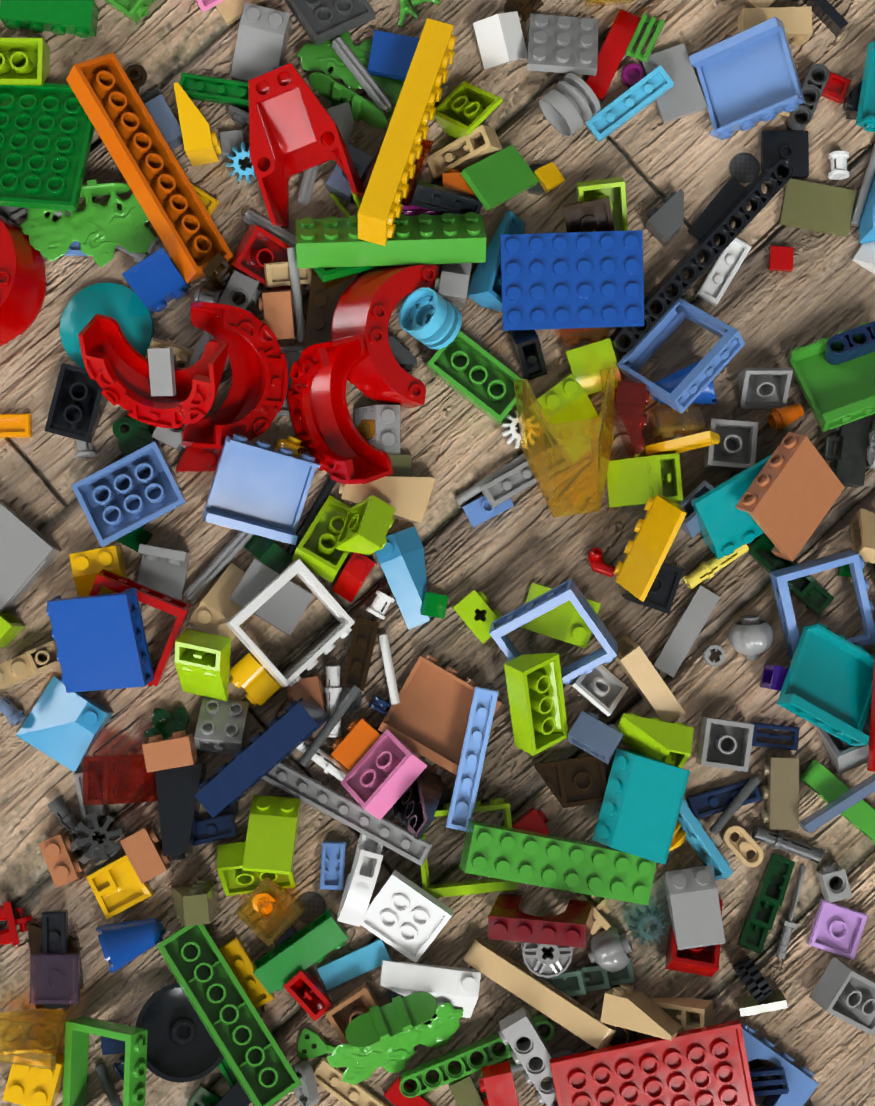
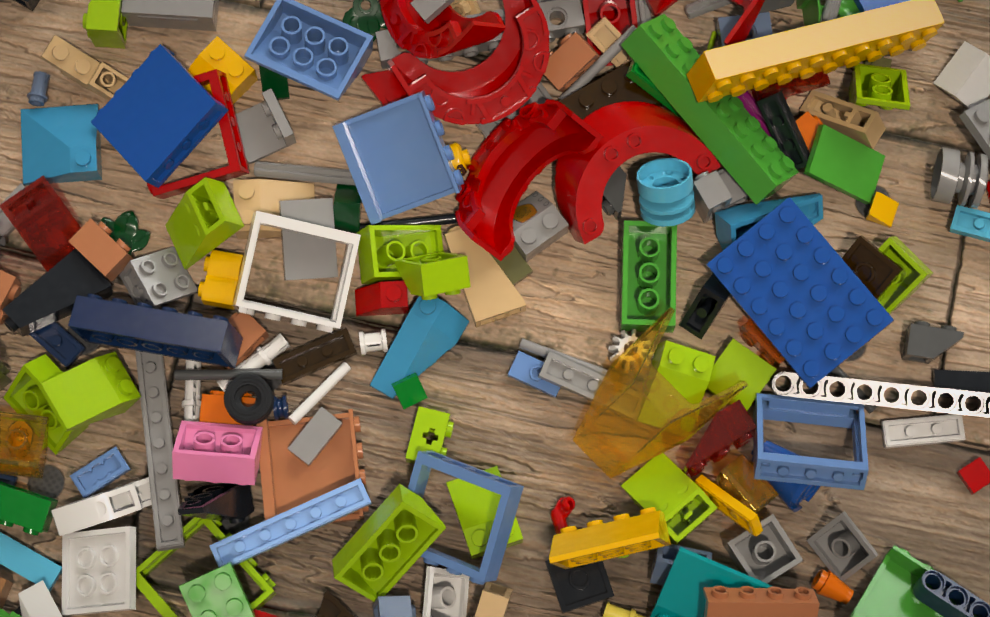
camera: 55 degrees right, 10 degrees down
(348, 730) = (248, 384): none -> black tyre
(419, 695) = (315, 436): none -> light grey tile

